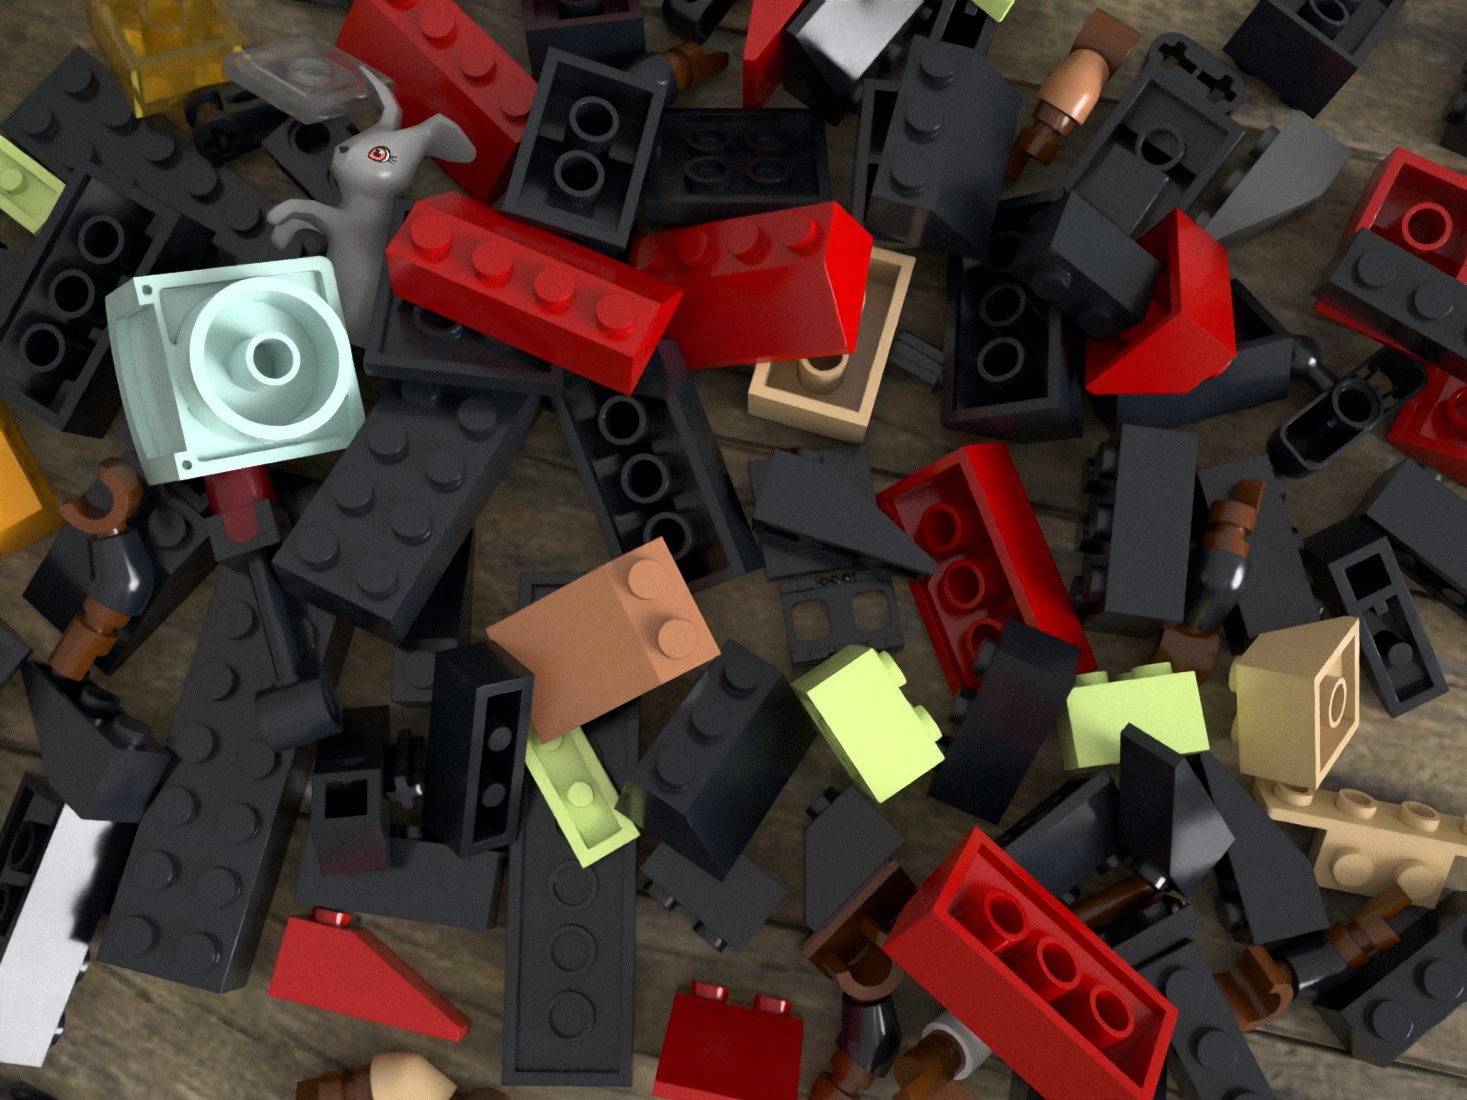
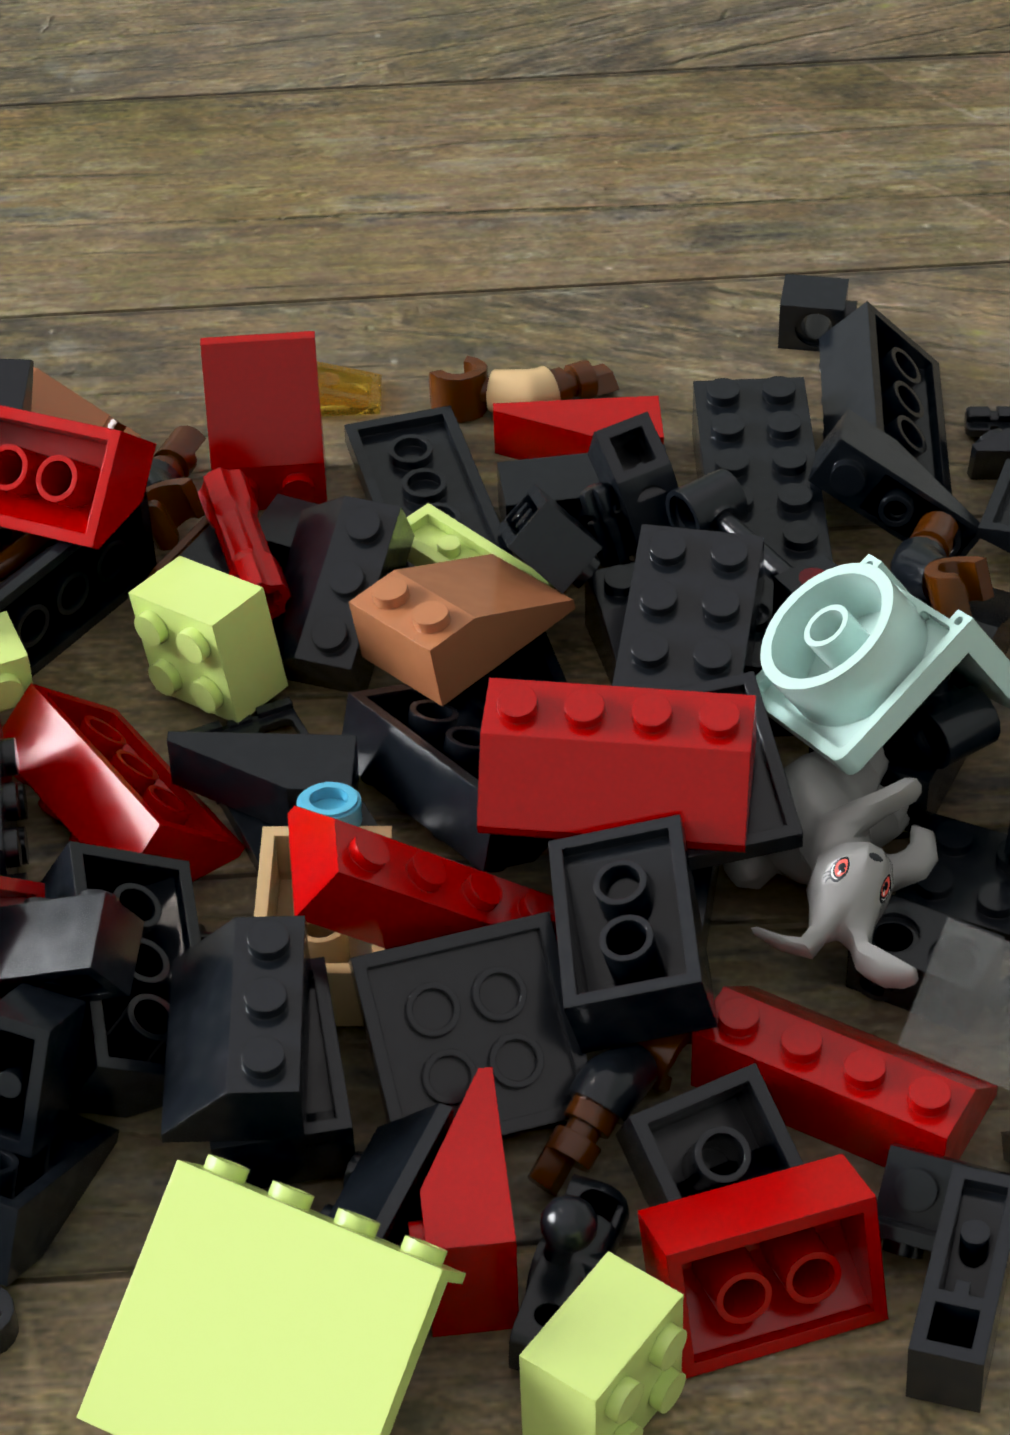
camera: 165 degrees right, 35 degrees down
(801, 900) = (233, 515): none -> red axle
(802, 417) = (333, 800): none -> medium azure tile
(1002, 718) = (80, 654): black brick -> none
(1073, 89) = (96, 1225): reddish brown piece -> none

